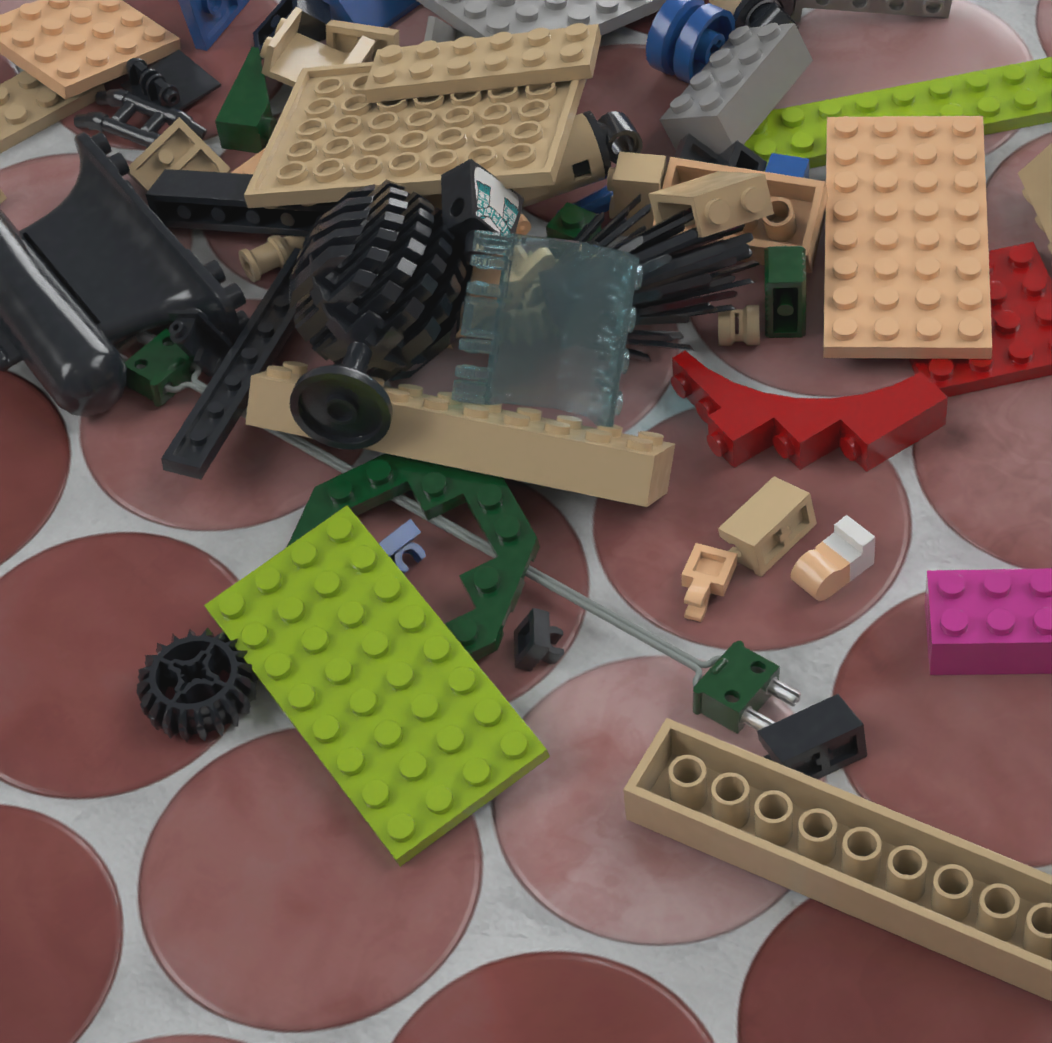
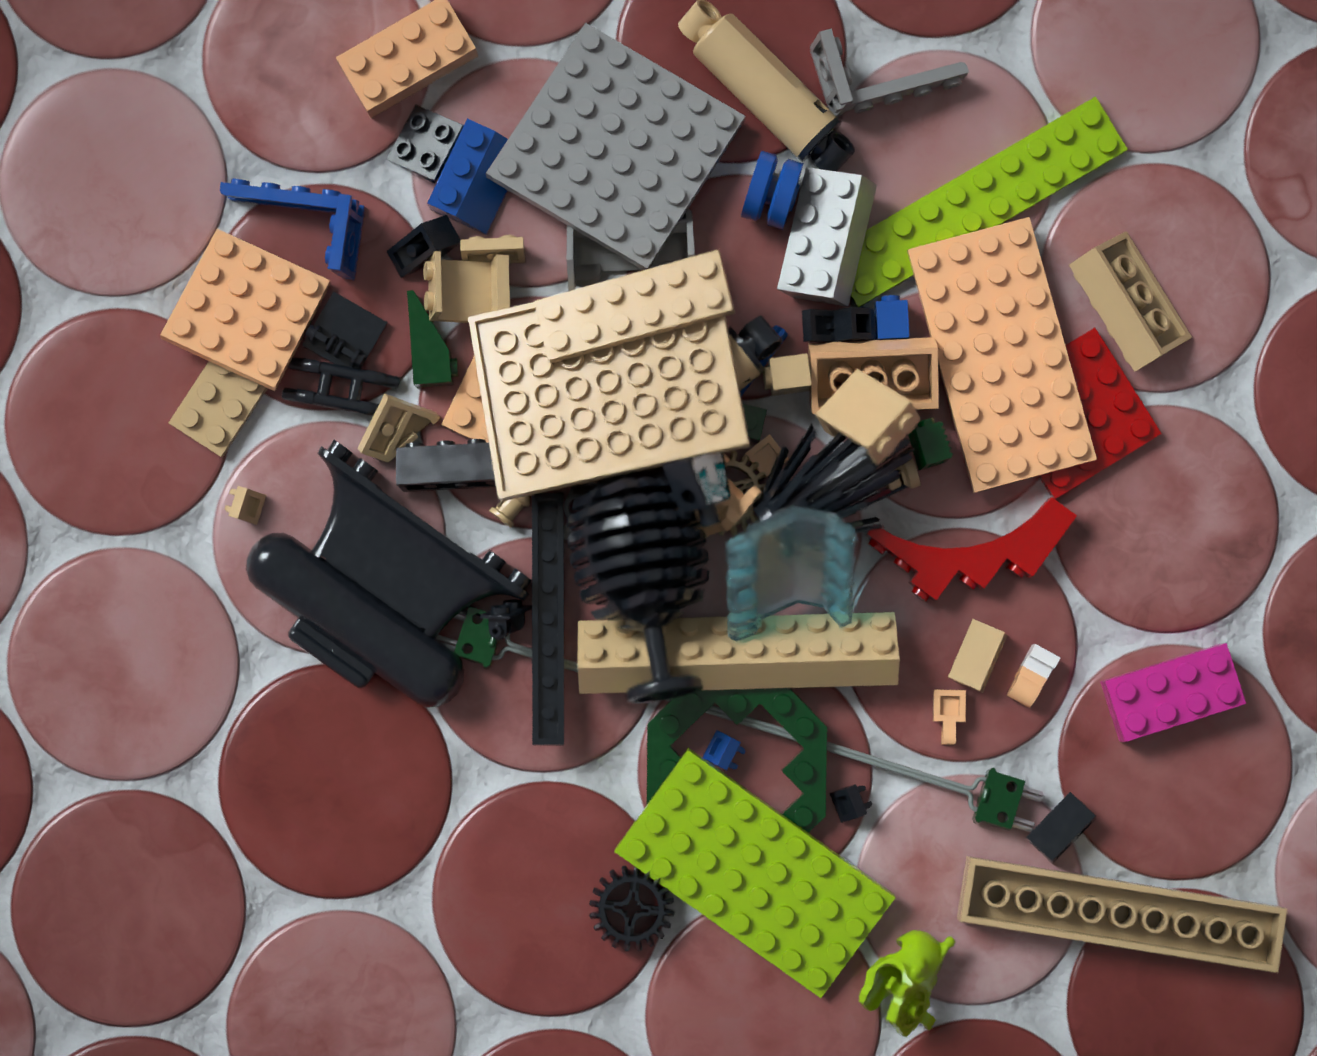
camera: 20 degrees left, 35 degrees up
(495, 851) = (909, 977): none -> lime helmet

